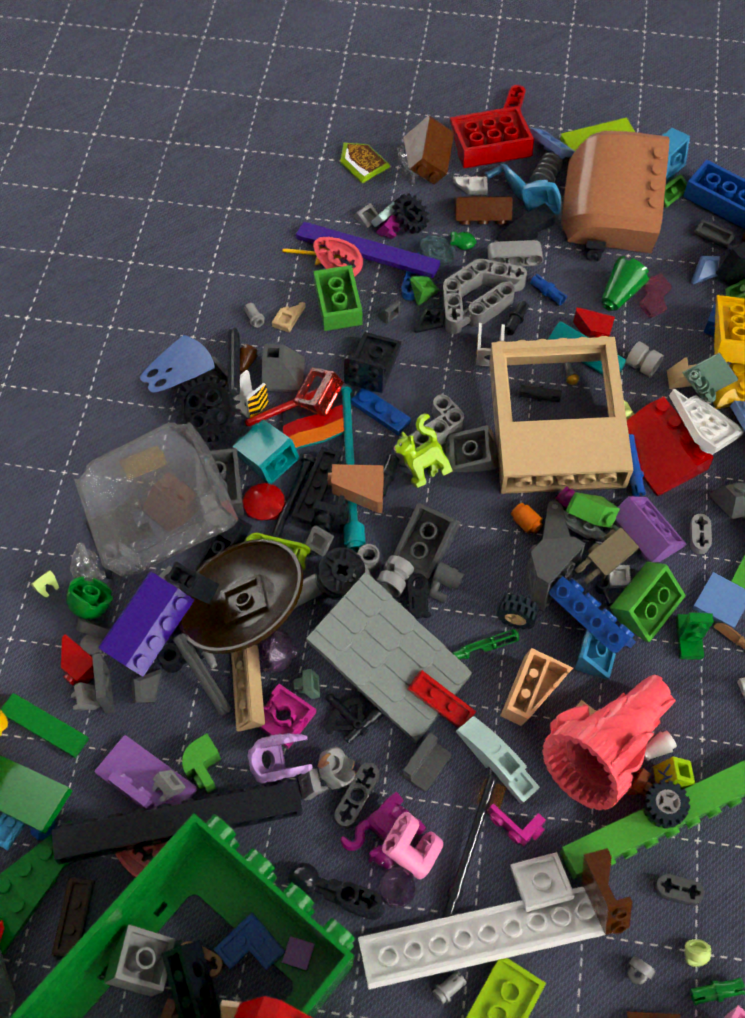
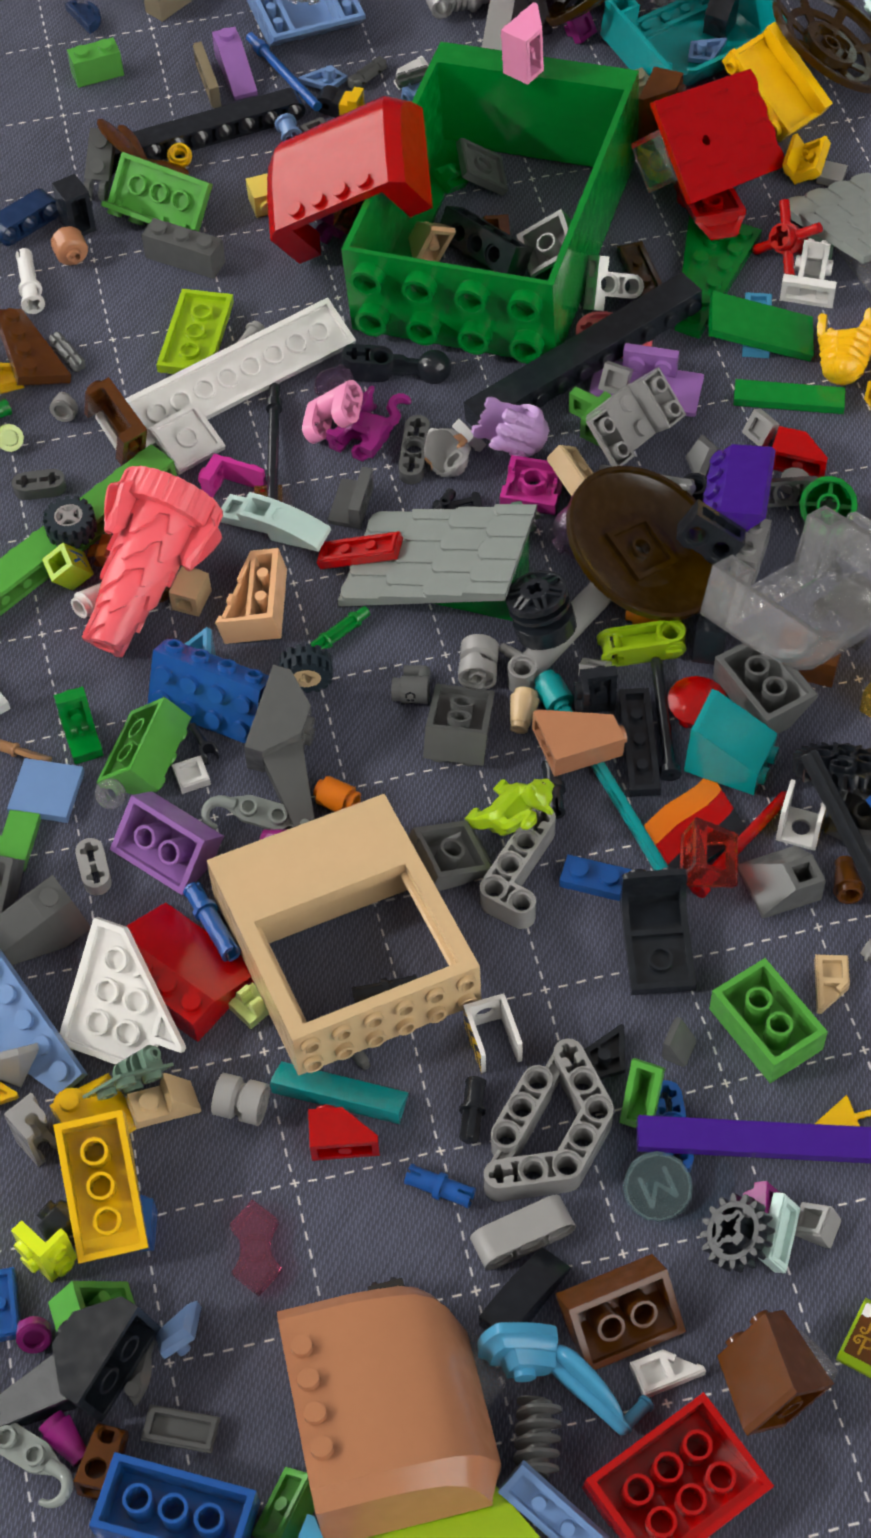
camera: 160 degrees right, 5 degrees down
(103, 683) = (745, 425): dark grey tile -> none
(105, 890) = (615, 284): none -> white tile
(187, 735) = (634, 416): none -> light grey slope
(338, 246) = (832, 1108): coral piece -> none
(380, 534) = (522, 705): none -> tan cone
(418, 598) = (437, 652): black piece -> none
(462, 240) = (624, 1230): green animal -> none
(593, 509) = (246, 820): bright green slope -> none
(609, 554) = (208, 769): dark tan hinge -> none
(624, 282) = (313, 1231): green cone -> none
(681, 576) = (103, 797): none -> clear plate

